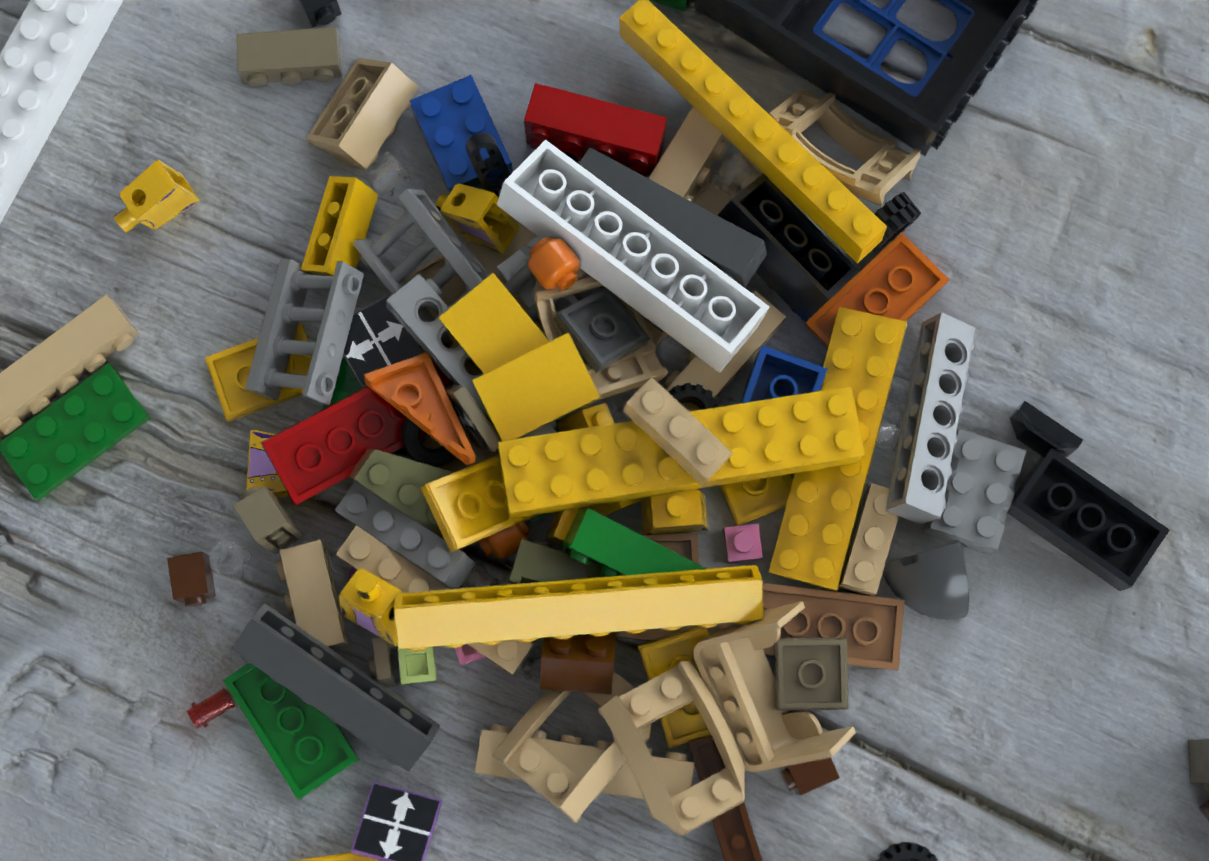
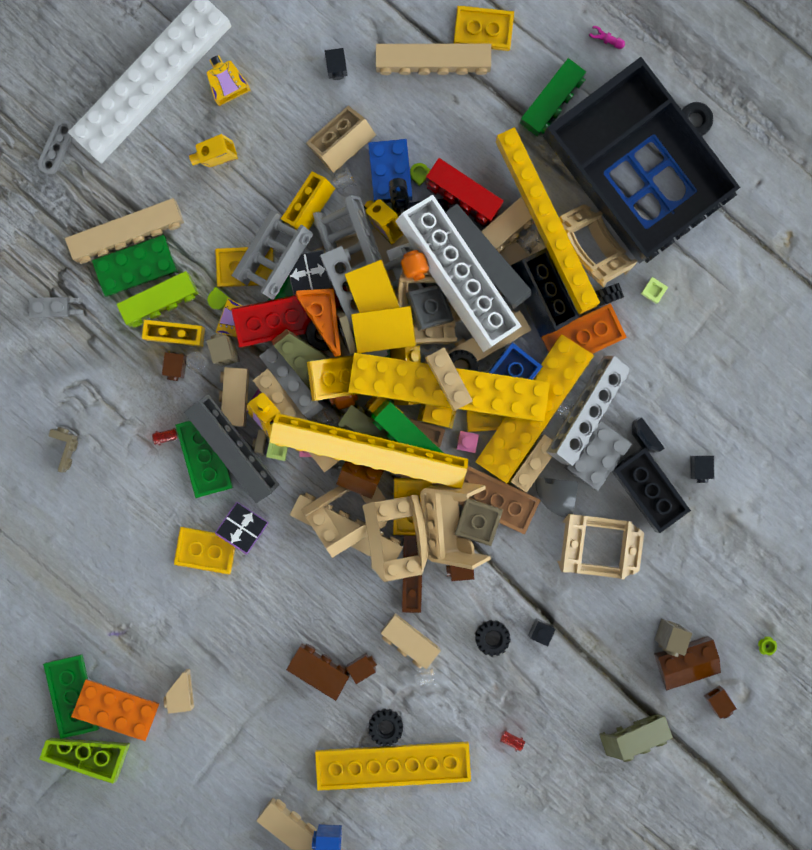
camera: 15 degrees right, 10 degrees up
(46, 781) = (71, 446): none -> dark tan bracket
(129, 473) = (157, 299): none -> lime brick
(142, 81) = (226, 81): none -> torso
(173, 521) = (173, 333): none -> yellow brick
(232, 441) = (217, 299): none -> lime tile
(289, 56) = (310, 93): dark tan brick -> none
(511, 127) = (418, 173): none -> lime tile
(965, 189) = (654, 290): none -> yellowish green plate
(991, 660) = (574, 542): none -> tan wedge
(991, 834) = (541, 632): none -> black brick
(1158, 454) = (702, 468): none -> black brick

